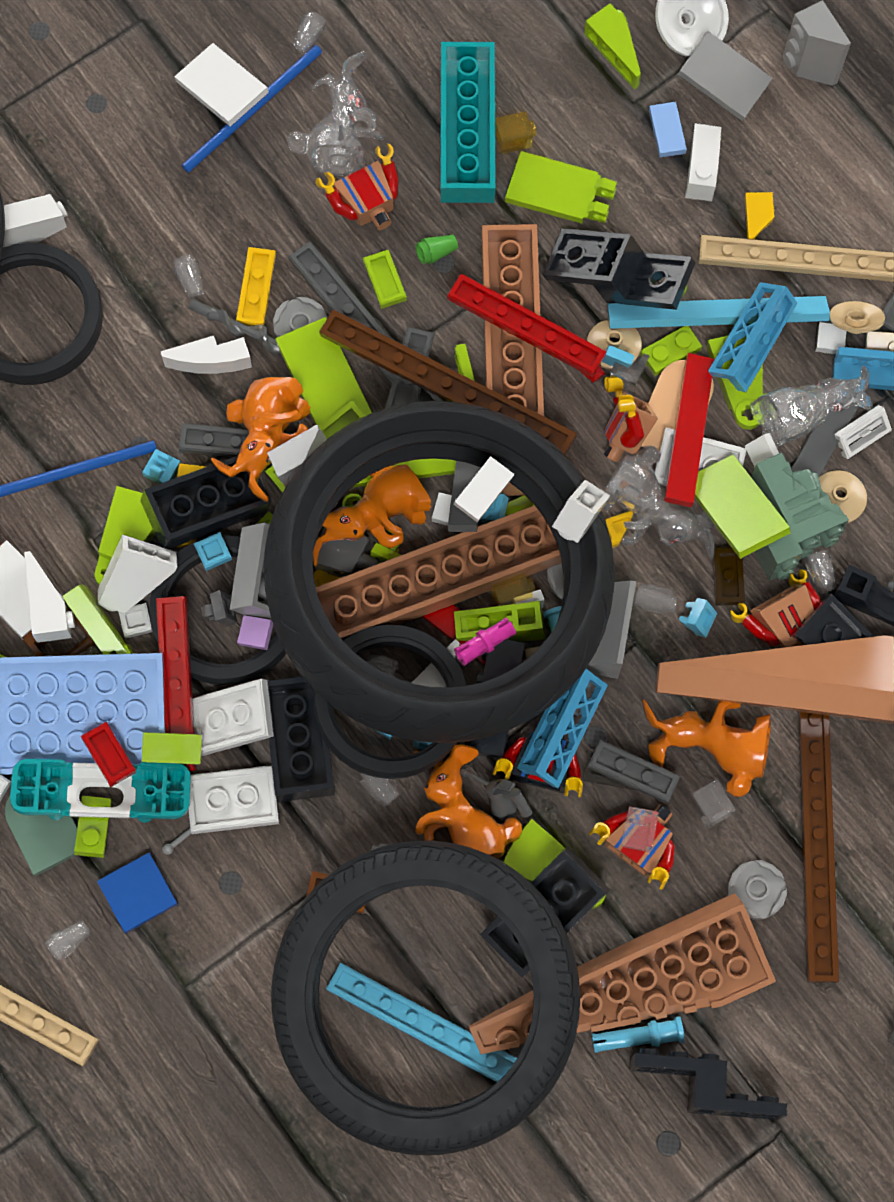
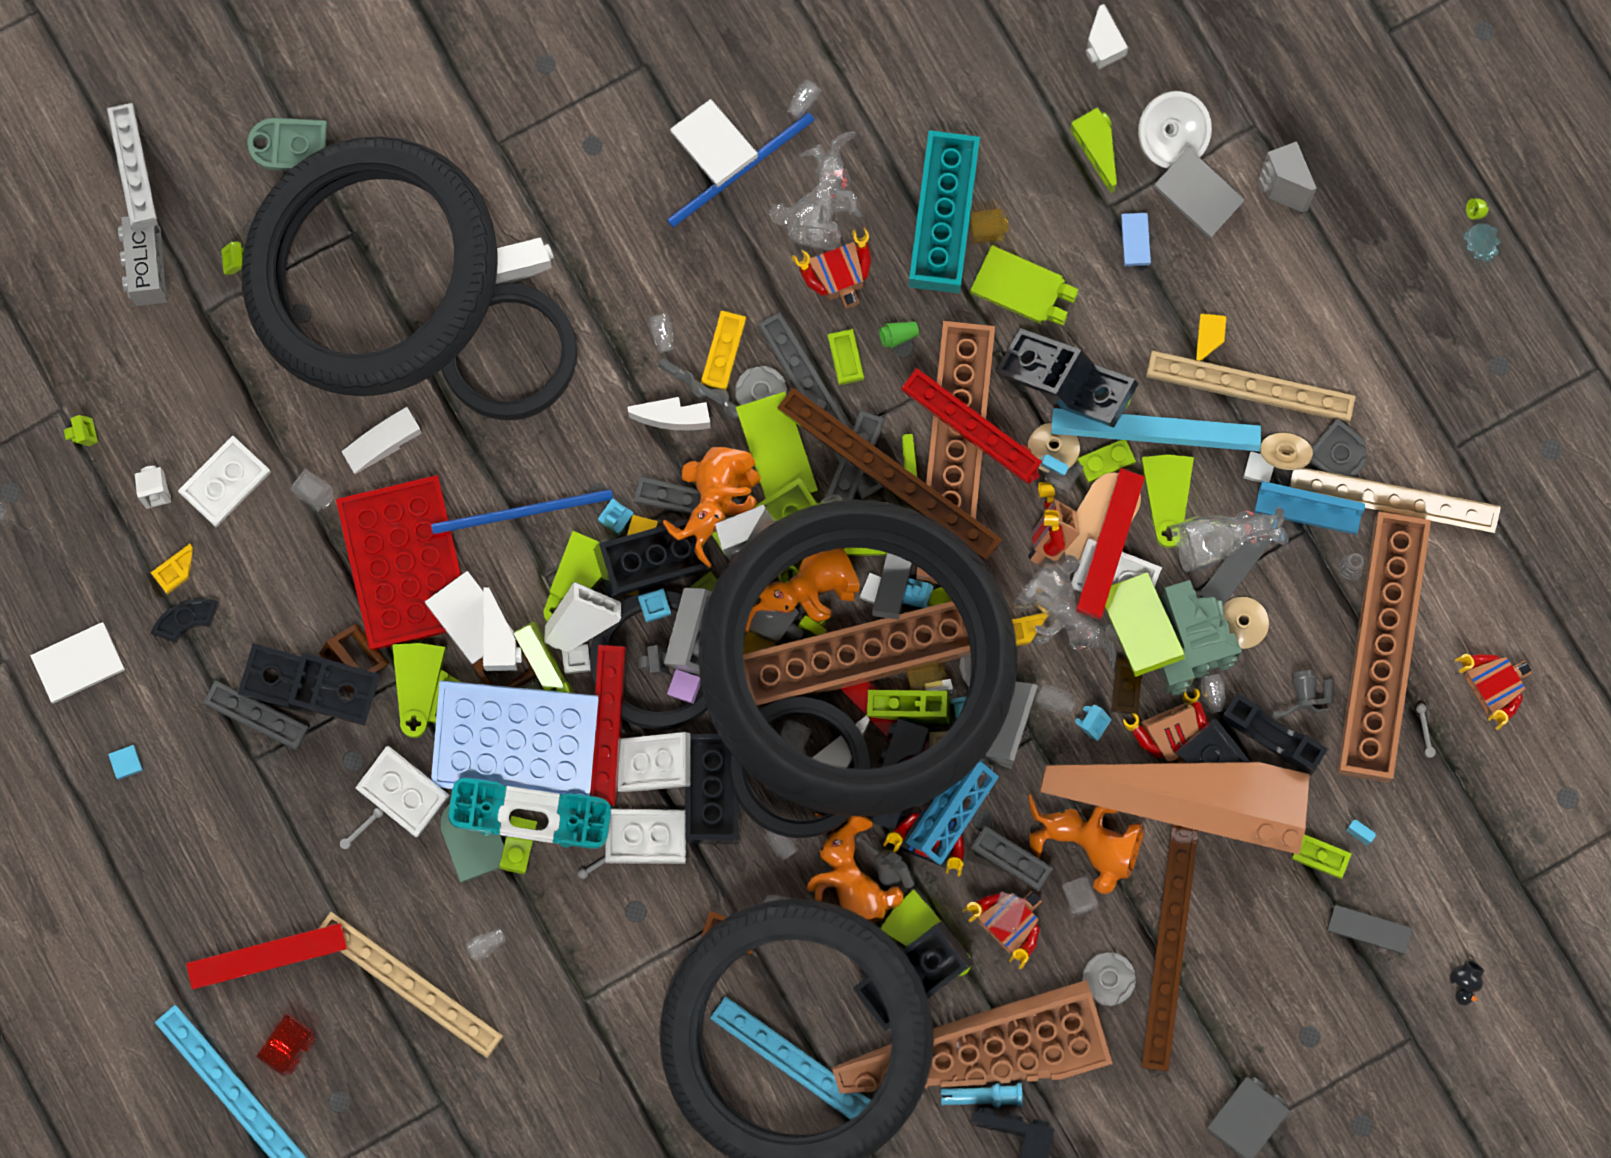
camera: 10 degrees right, 5 degrees up
(108, 754) = (539, 783): red tile -> none
(137, 893) = (551, 910): blue tile -> none
(172, 748) = (597, 783): lime tile -> none
(483, 489) = (905, 593): white tile -> none
(485, 641) = (887, 733): dark pink pin -> none
(580, 511) = (990, 624): white slope -> none
(703, 162) = (1165, 276): white slope -> none
(760, 335) = (1188, 461): dark azure fence -> none
(761, 449) = (1175, 572): white tile -> none
(862, 428) = (1273, 560): white tile -> none

